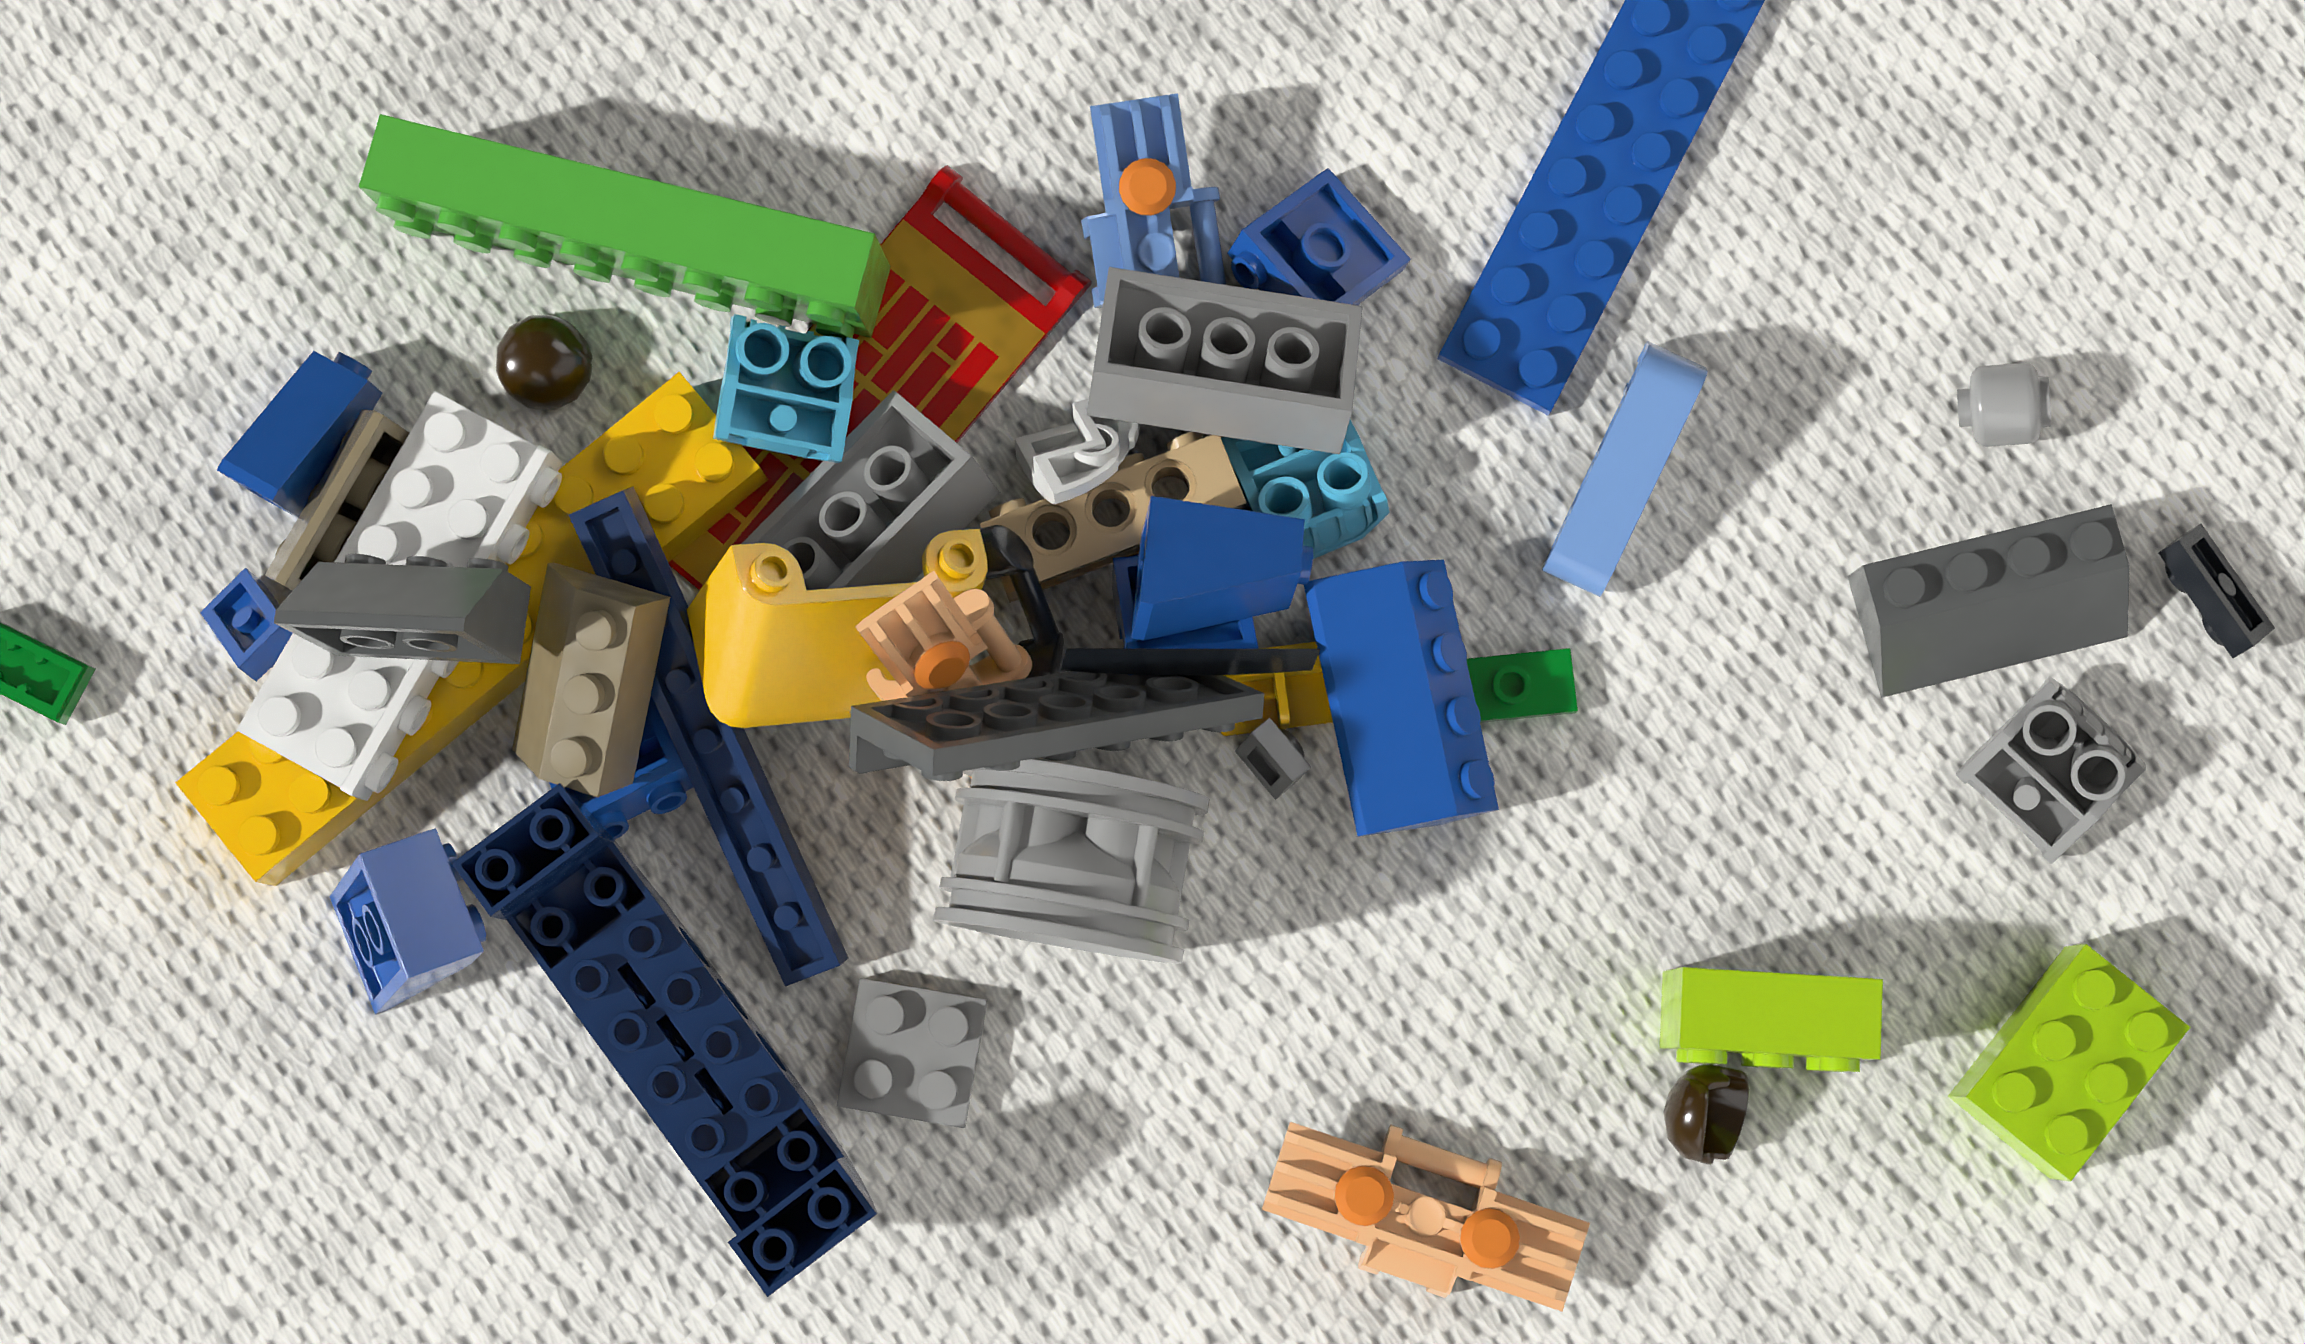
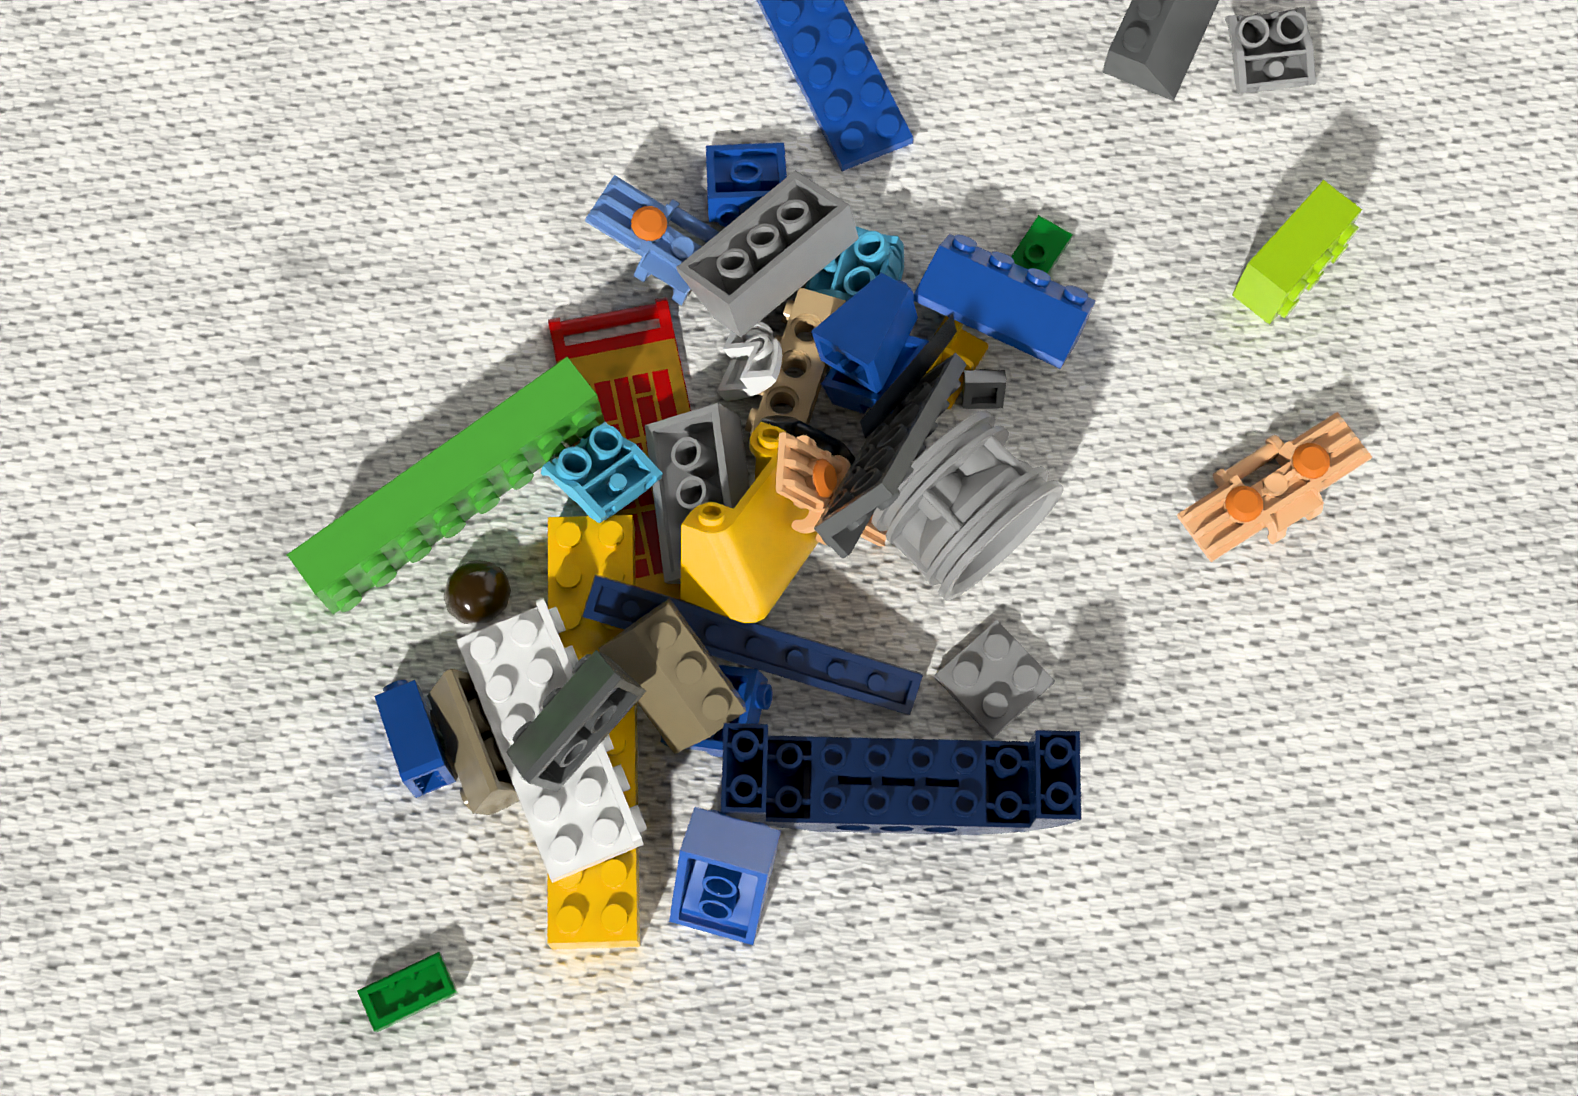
camera: 55 degrees left, 10 degrees down
(245, 624) = (492, 842): blue plate -> none
(1625, 468) = (972, 119): medium blue beam -> none
(1707, 1112) = (1319, 322): dark brown hair -> none
(2069, 1062) = (1419, 144): lime brick -> none

